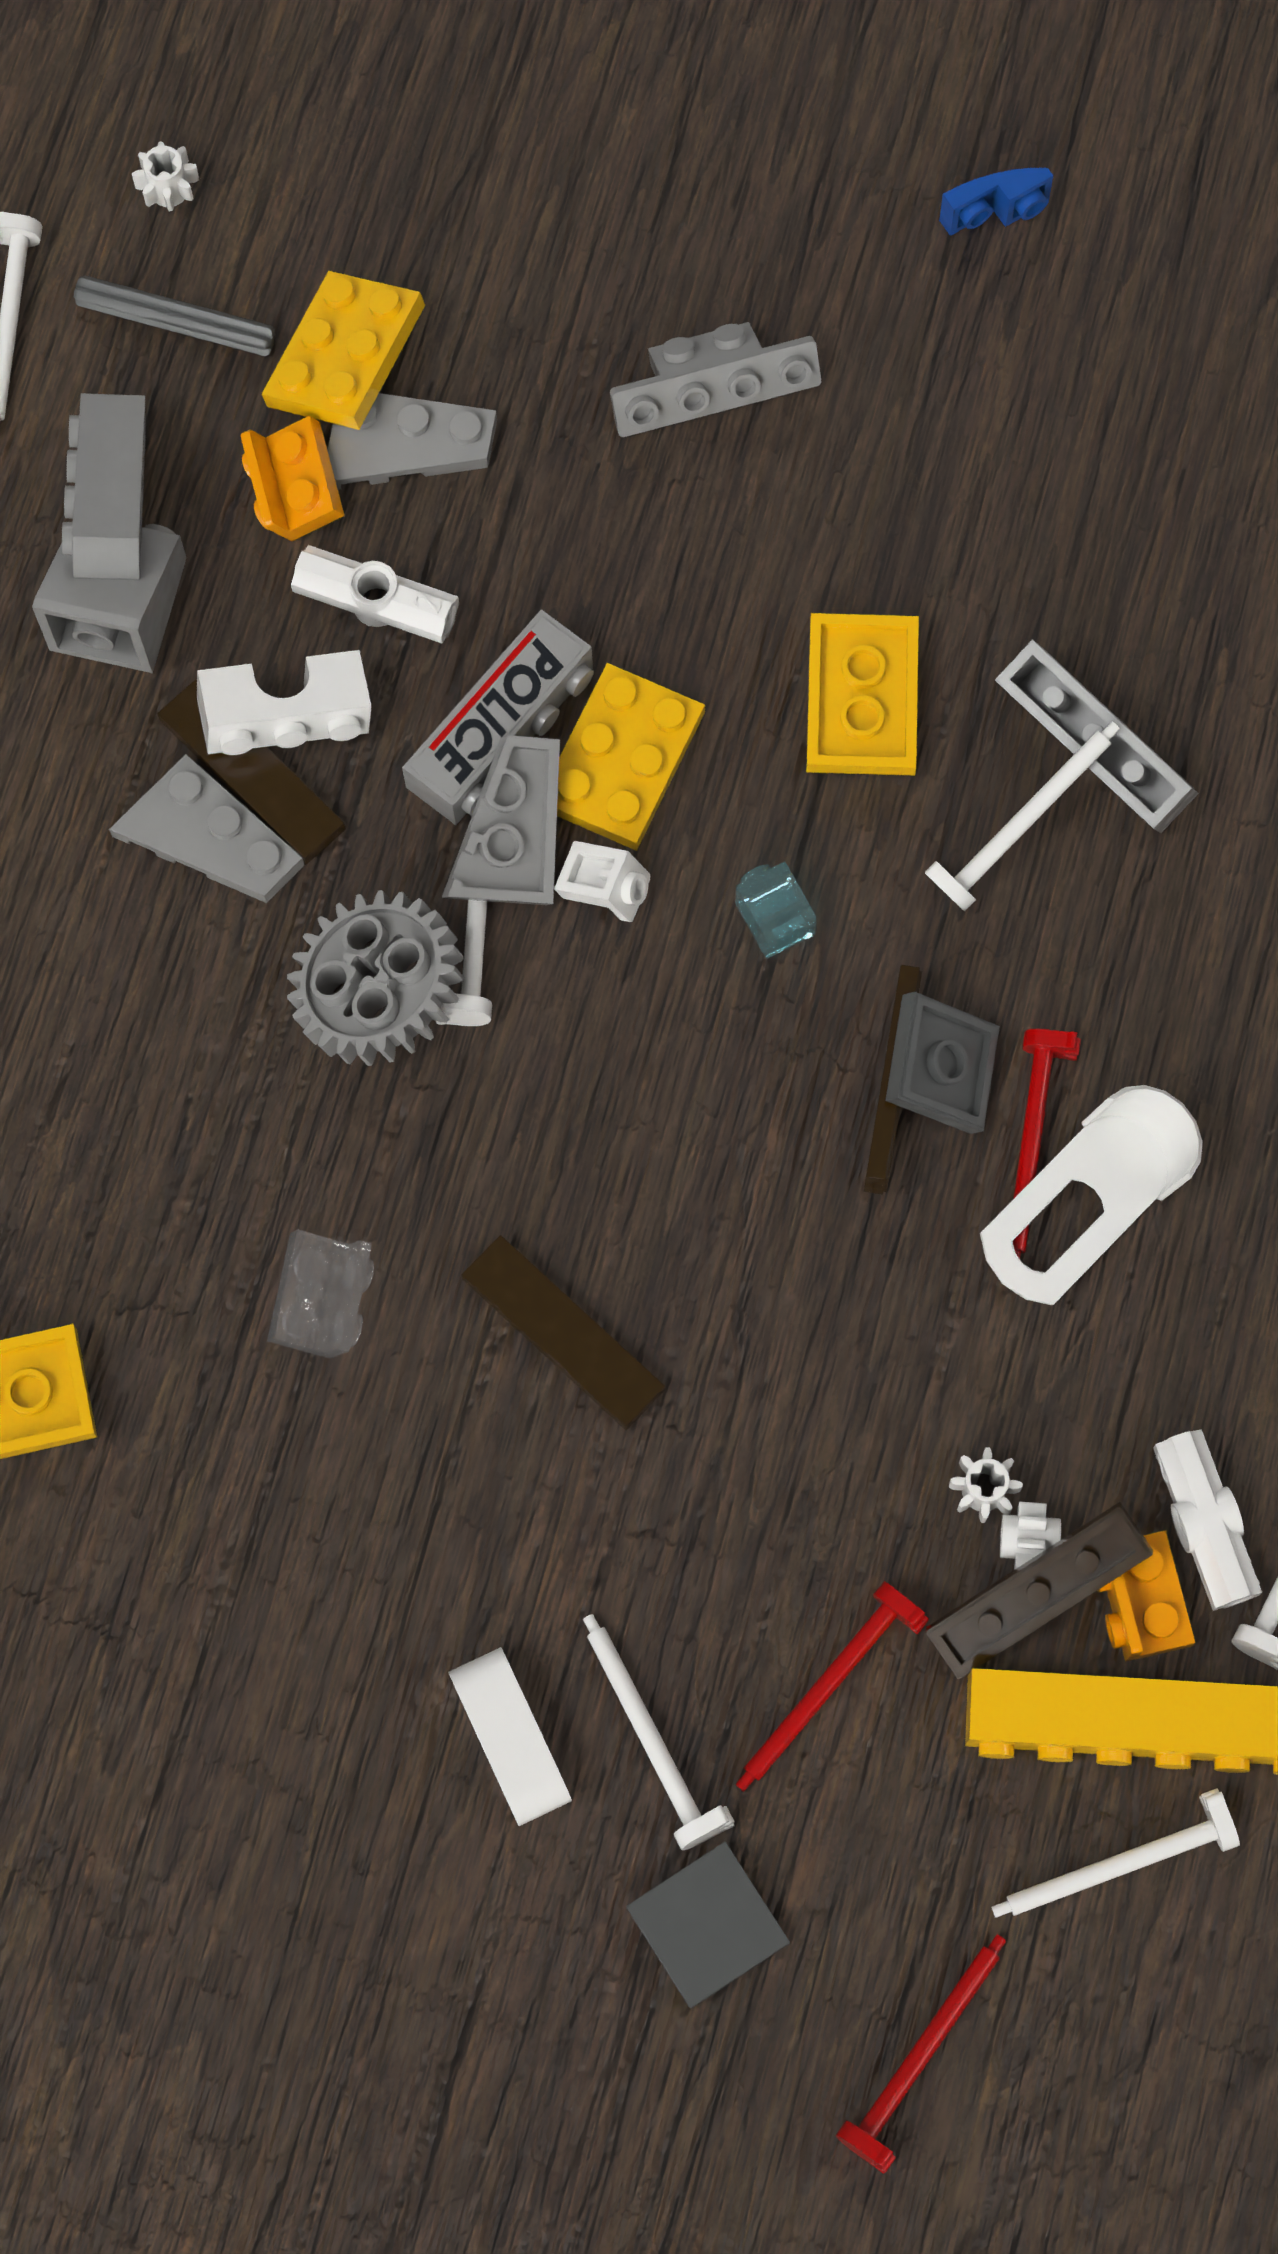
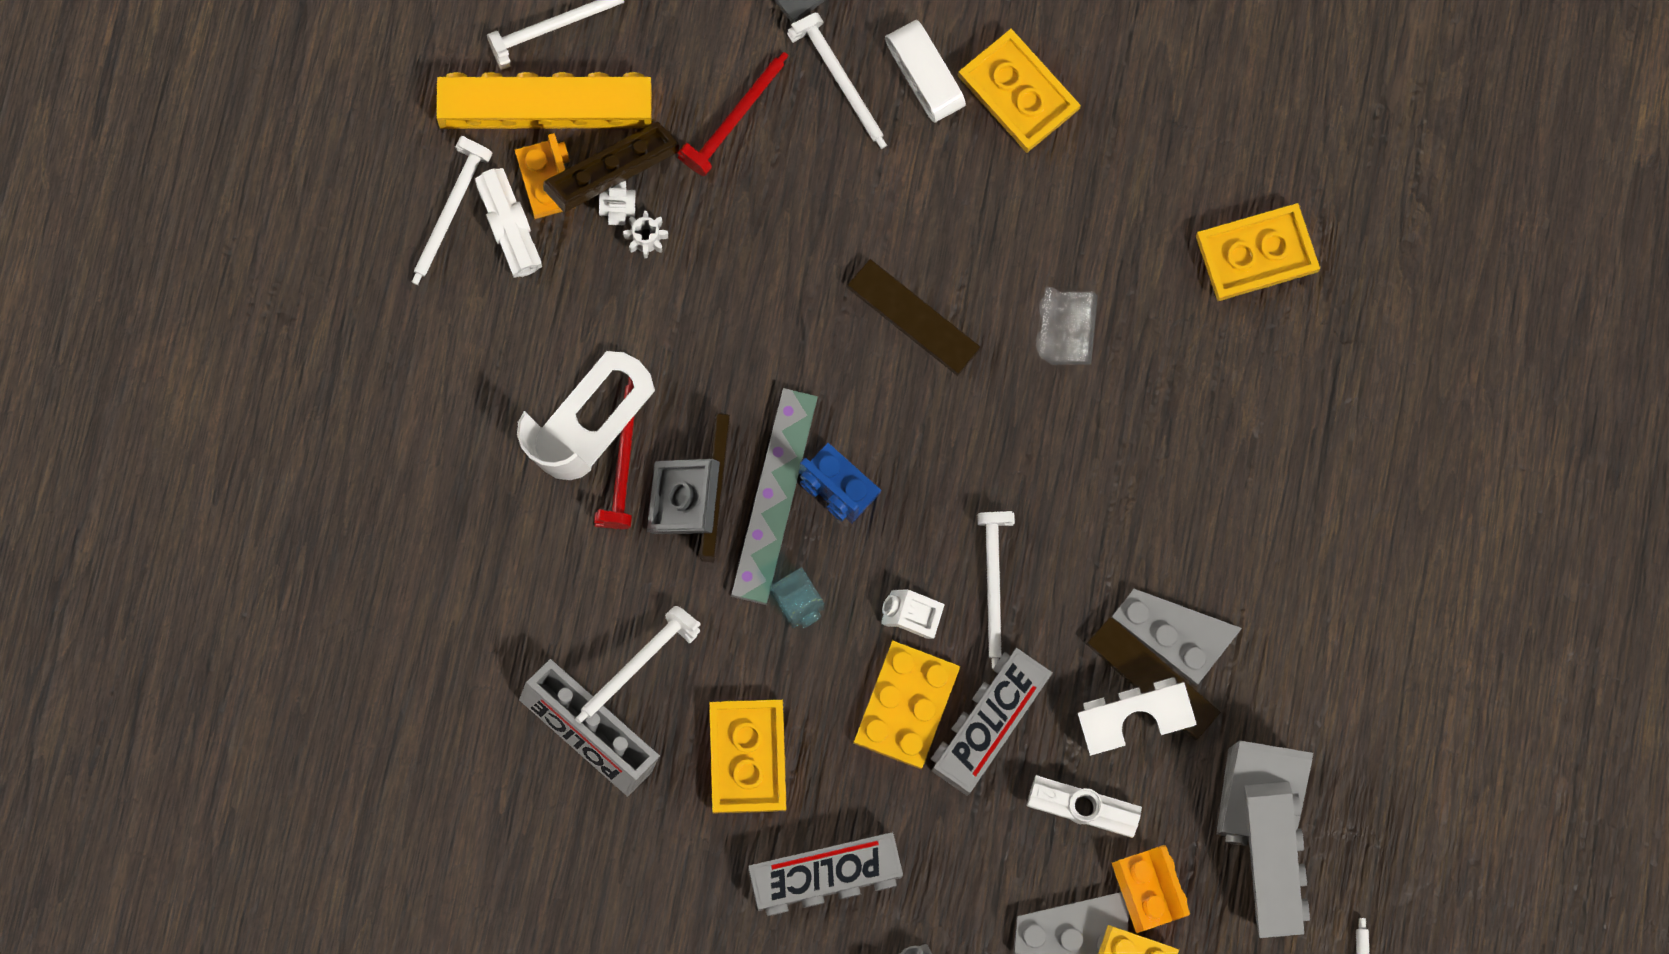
camera: 165 degrees right, 5 degrees up
(357, 1694) = (1019, 90): none -> yellow plate
(375, 978) = (1030, 513): light grey gear -> none
(512, 828) = (974, 638): light grey wing -> none
(704, 1071) = (838, 483): none -> blue bracket
(759, 528) = (826, 872): none -> light grey brick
(799, 1071) = (774, 496): none -> tile

